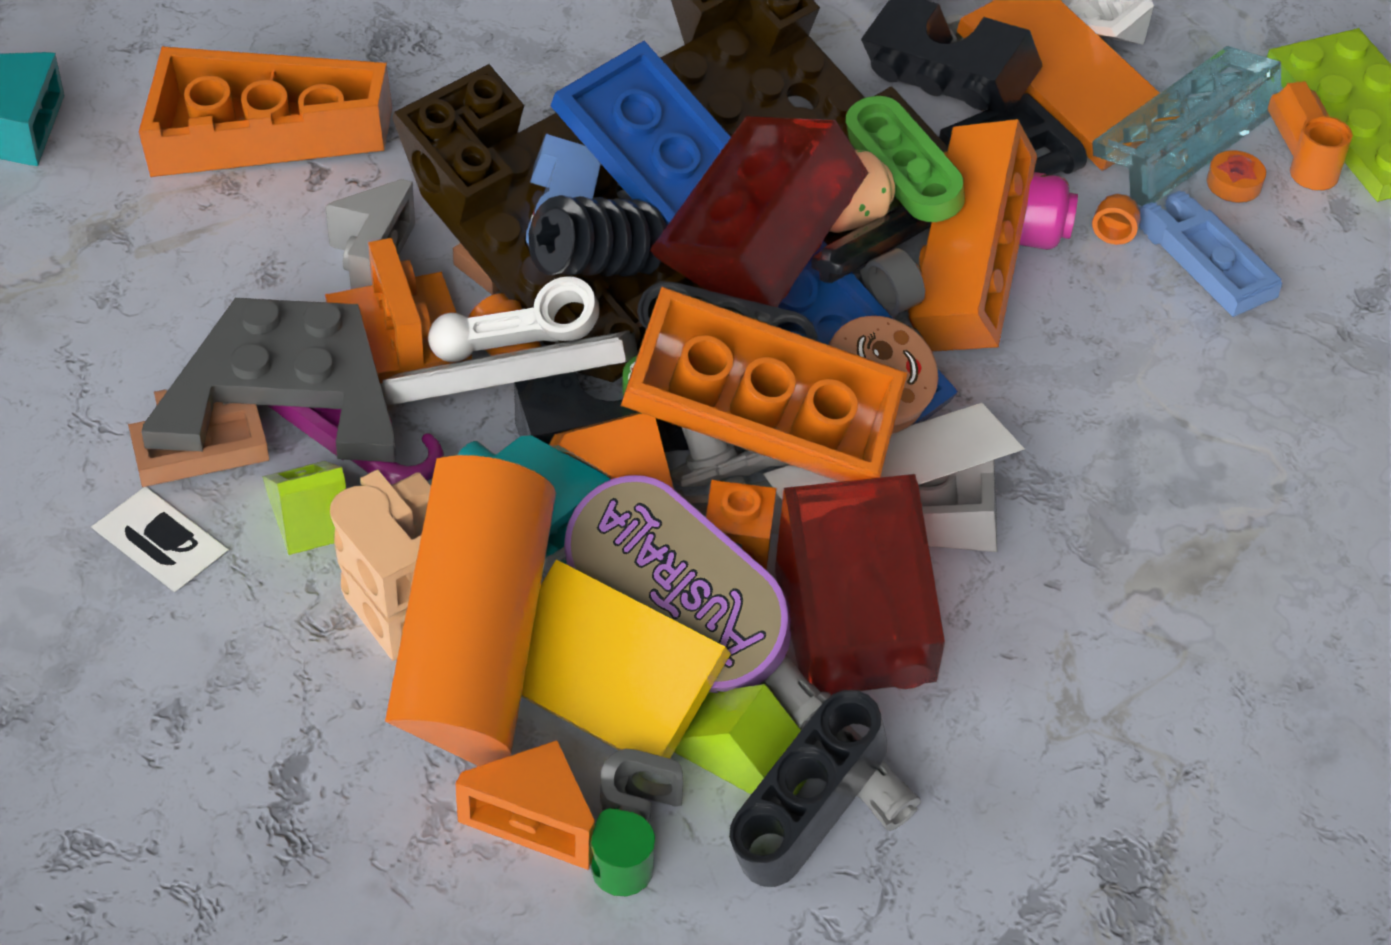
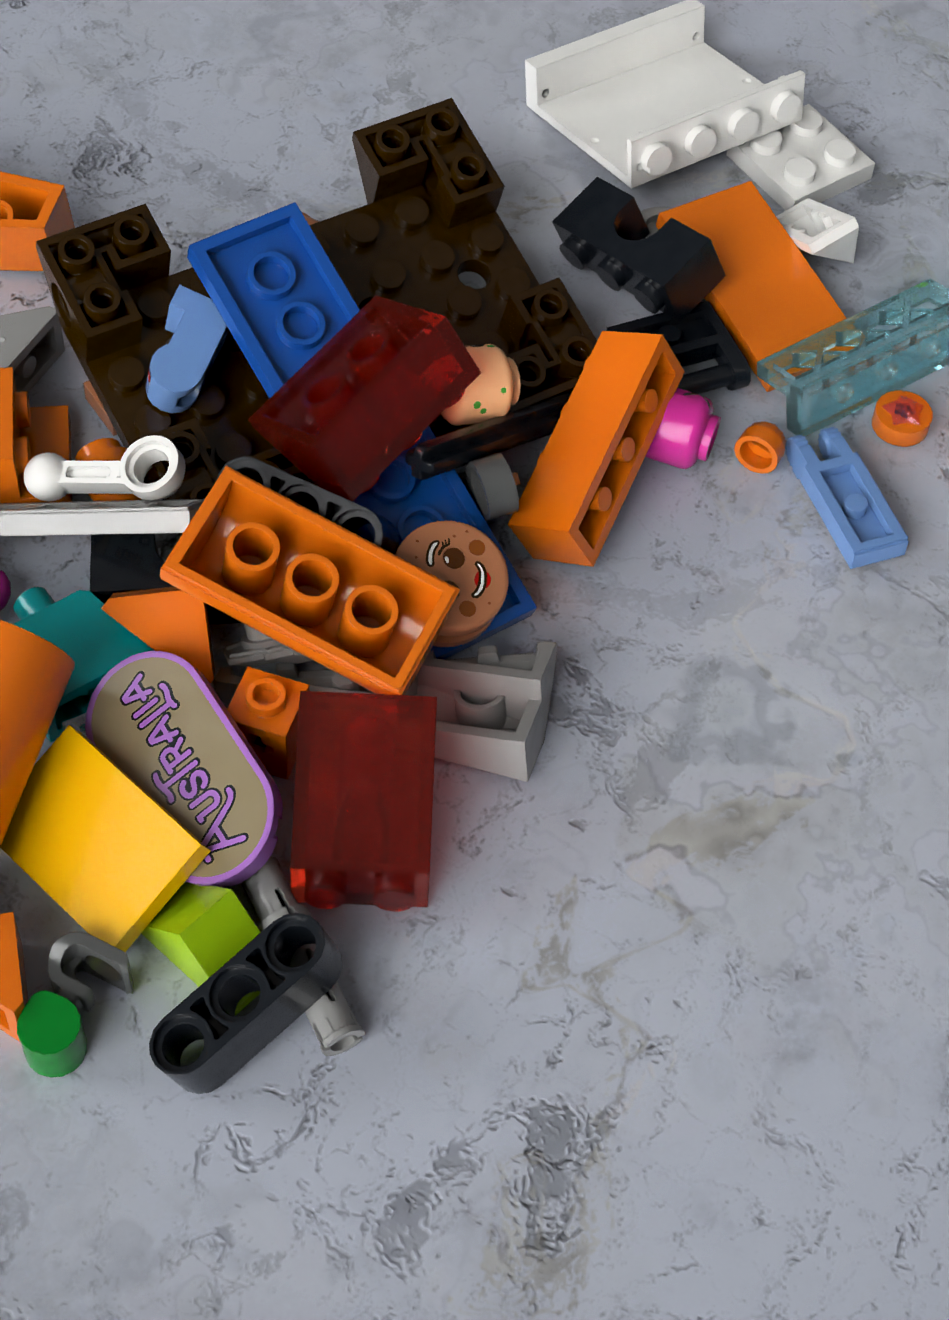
camera: 10 degrees right, 5 degrees up
(595, 236) = (196, 397): black piece -> none
(922, 173) = (546, 363): bright green plate -> none
(927, 449) = (477, 668): white sticker -> none

